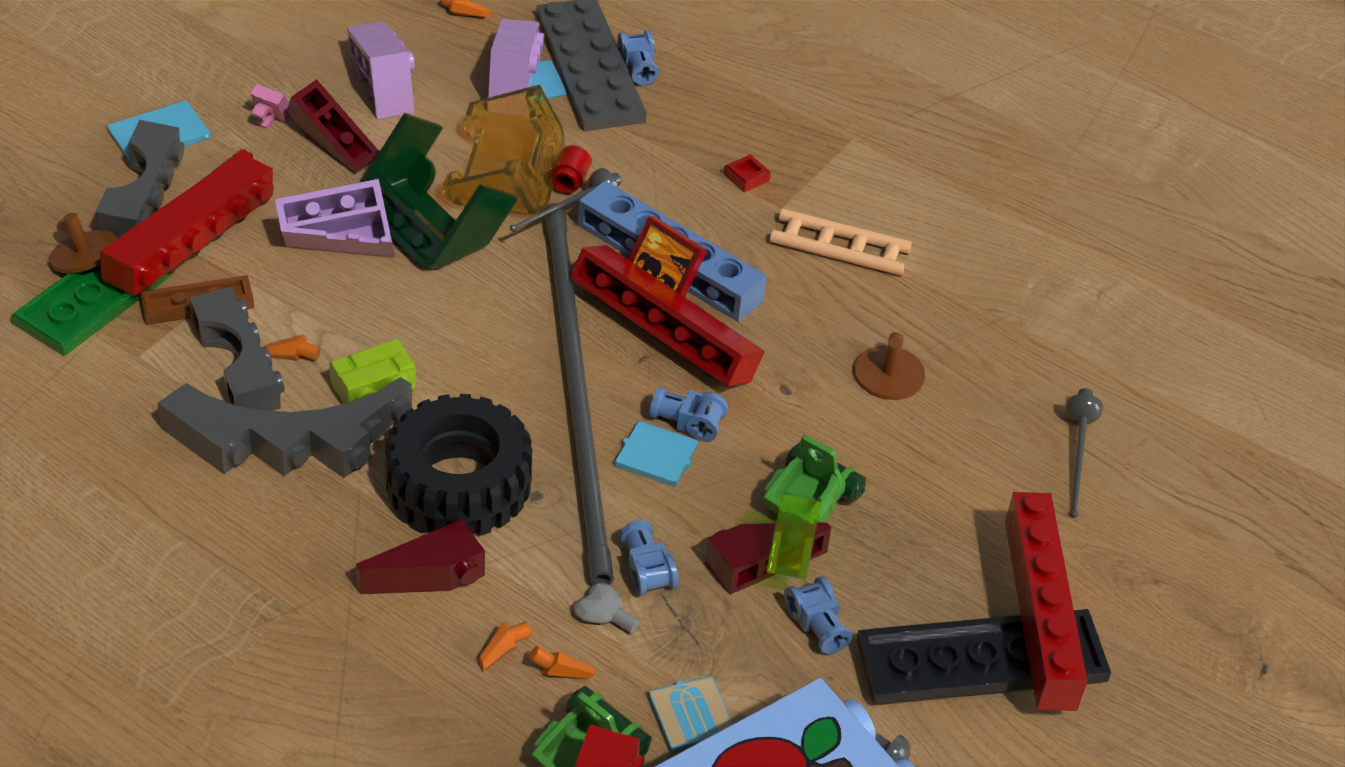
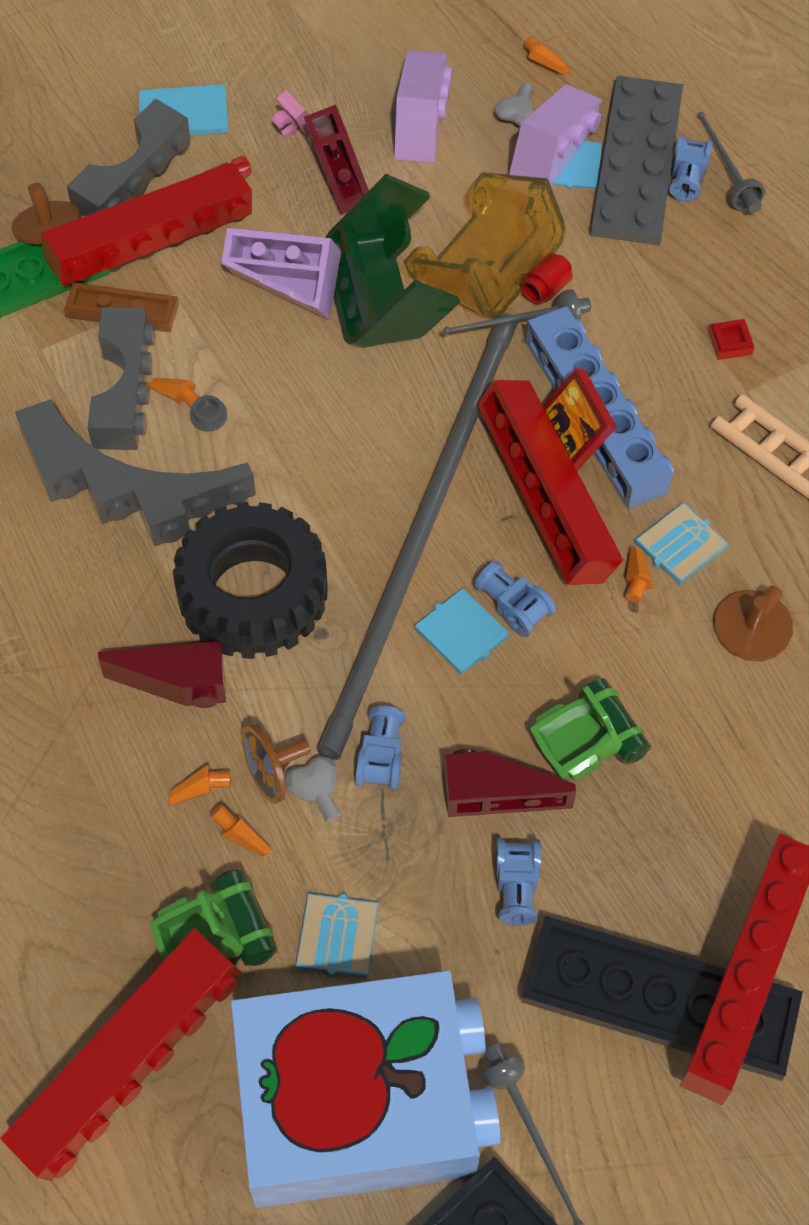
camera: 30 degrees right, 15 degrees up
(330, 351) = (208, 413): none -> dark grey plate
(371, 370) = (231, 443): lime brick -> none
(465, 51) = (518, 107): none -> light grey rock
(559, 597) = (269, 764): none -> shield
(697, 63) = (747, 192): none -> dark grey sword
(778, 365) = (637, 575): none -> orange bar
(794, 535) = (525, 789): clear neon green slope -> none
(797, 332) = (681, 543): none -> piece

